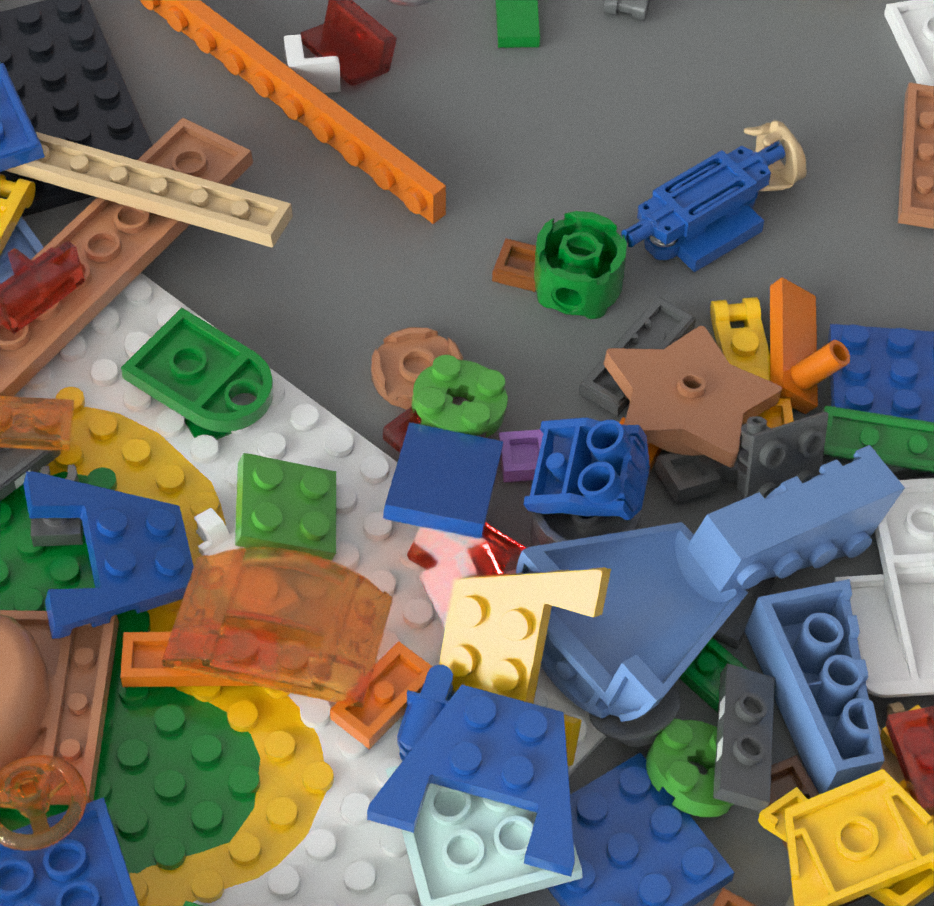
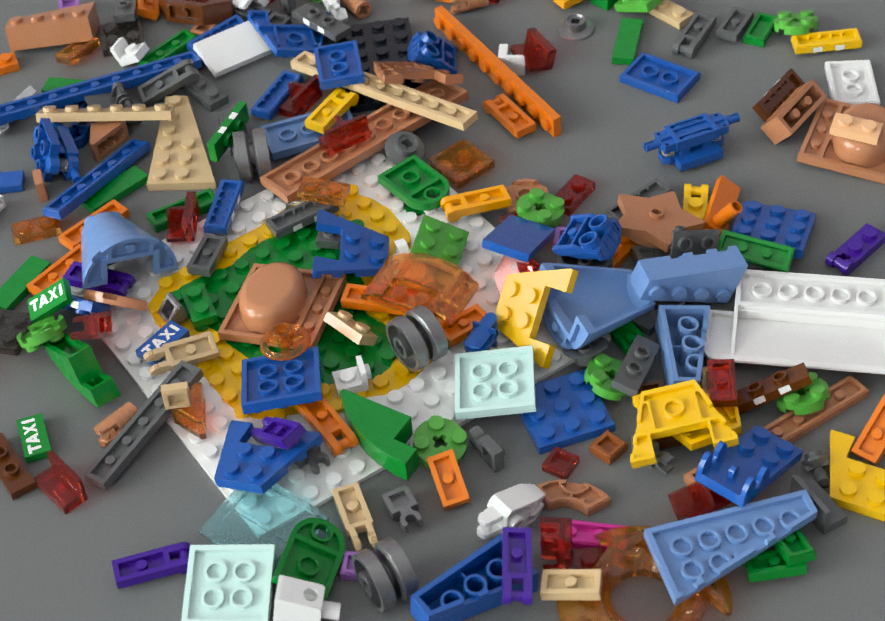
camera: 20 degrees right, 10 degrees down
(106, 127) = (399, 71): none -> nougat wing
(146, 306) = (396, 150): none -> dark grey piece
(155, 67) = (432, 51): none -> blue slope
(157, 739) = (356, 331): none -> tan plate
(189, 858) = (354, 378): none -> white bracket
(274, 308) = (462, 163): none -> clear orange plate
(307, 752) = (417, 338): none -> flat silver wheel
(330, 400) = (475, 202): none -> light orange plate
(339, 189) = (509, 115): none -> orange plate
(494, 752) = (505, 349): blue wing -> none
(509, 344) = (575, 192): none -> clear red plate
(516, 265) = (592, 159): dark orange tile -> none
(579, 264) = (619, 159): green brick -> none
(597, 69) = (660, 77): none -> blue tile
(795, 169) = (739, 130): tan piece -> none
(828, 88) = (777, 94): none -> reddish brown plate
(869, 122) = (793, 111): none -> nougat brick

